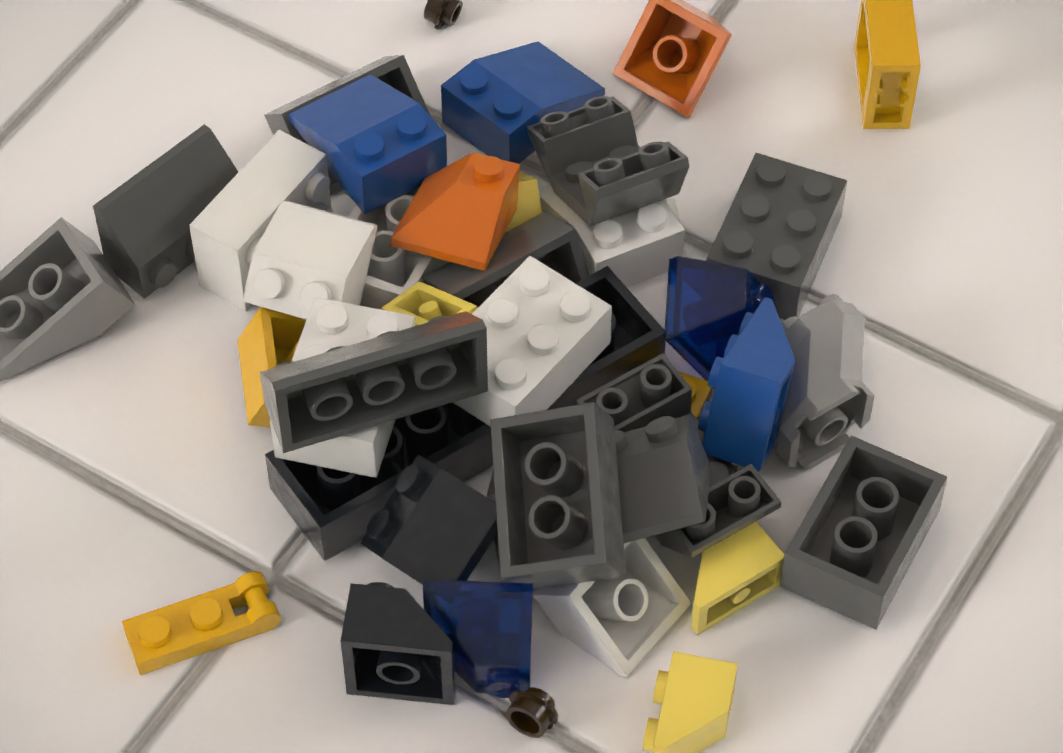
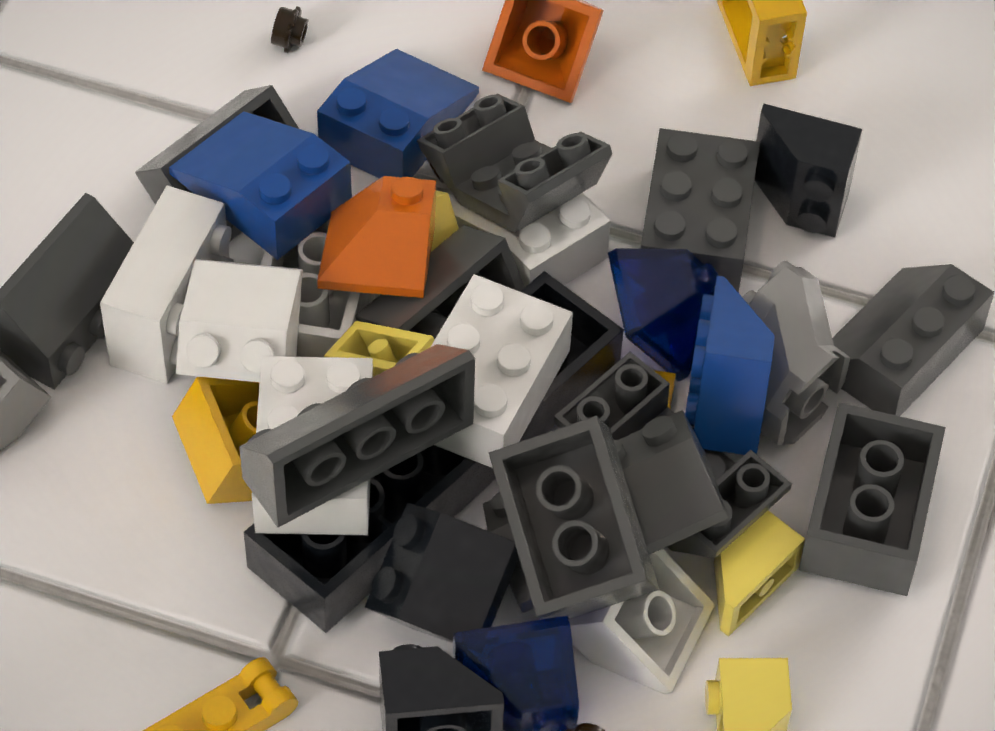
camera: 15 degrees left, 0 degrees up
(888, 213) = (806, 167): none -> black slope
(947, 388) = (911, 334): none -> dark grey slope

